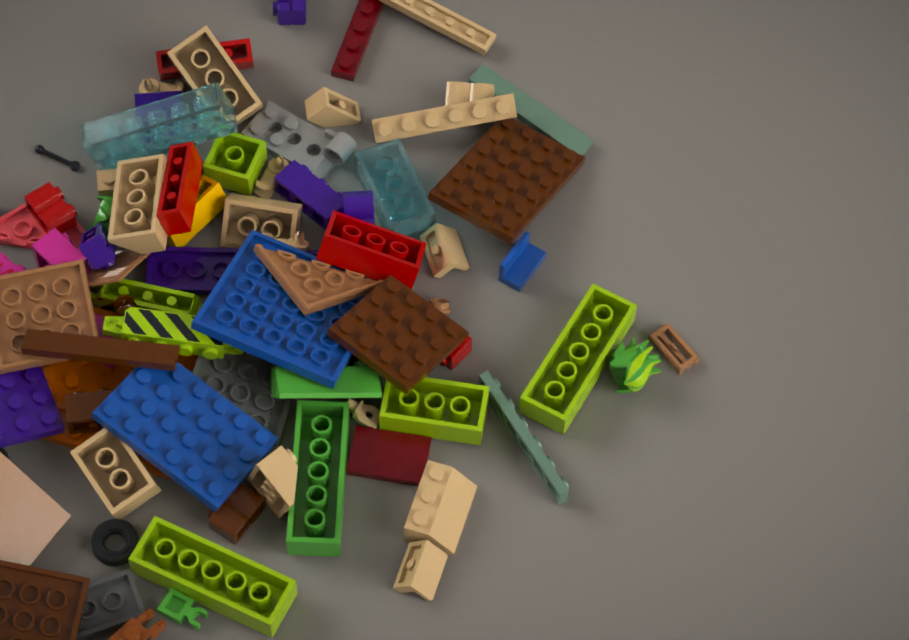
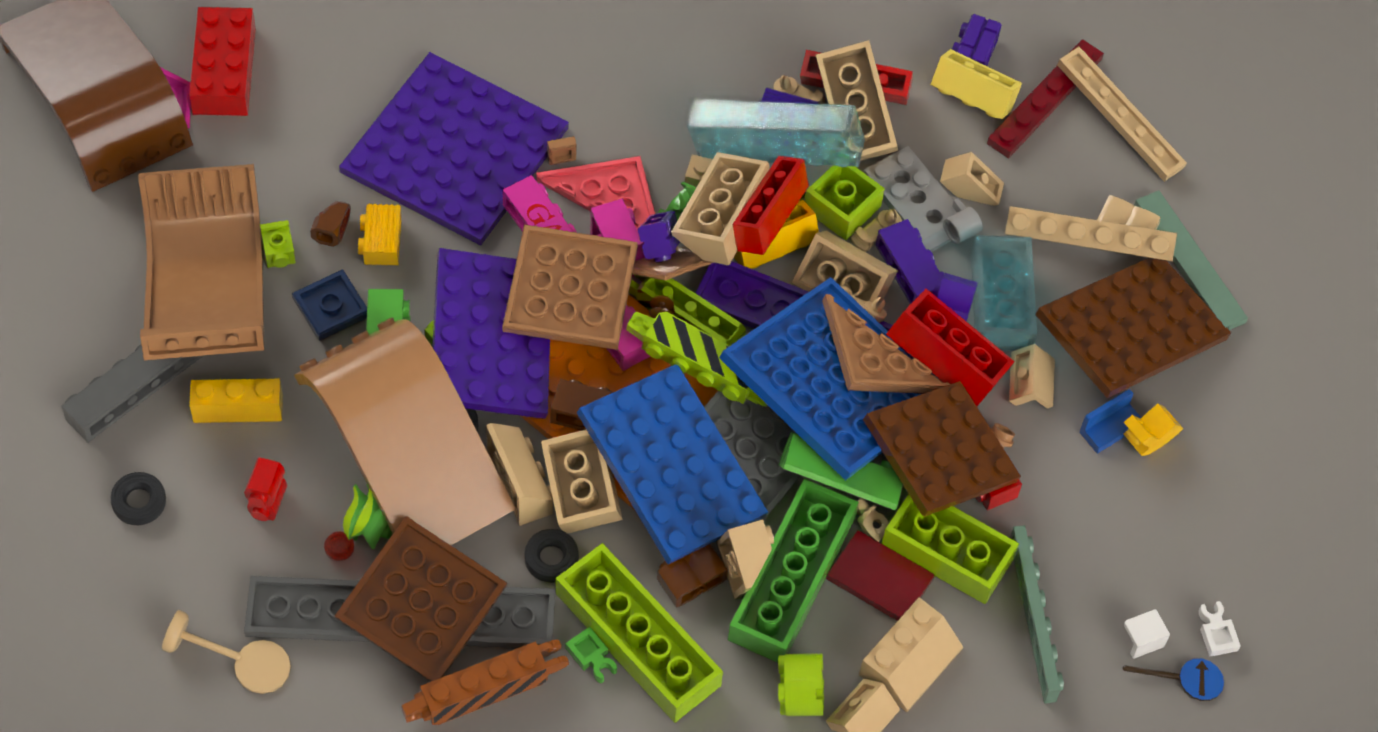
camera: 20 degrees right, 0 degrees up
(50, 209) = (628, 178): red brick -> none
(61, 484) = (519, 472): none -> tan slope
(74, 165) = (673, 141): black hinge -> none
(100, 349) = (616, 345): reddish brown tile -> none
(303, 30) = (976, 84): none -> light yellow brick
(362, 566) = (801, 684): none -> lime brick
(555, 257) = (1152, 430): none -> yellow brick
(577, 359) = (1130, 550): lime brick -> none
(616, 418) = (1146, 633): none -> white panel
(632, 366) = (1189, 582): bright green hair -> none
(668, 438) = (1197, 677): none -> blue piece
(670, 398) = (1218, 634): none -> white plate
(685, 364) = (1251, 603): medium nougat tile -> none

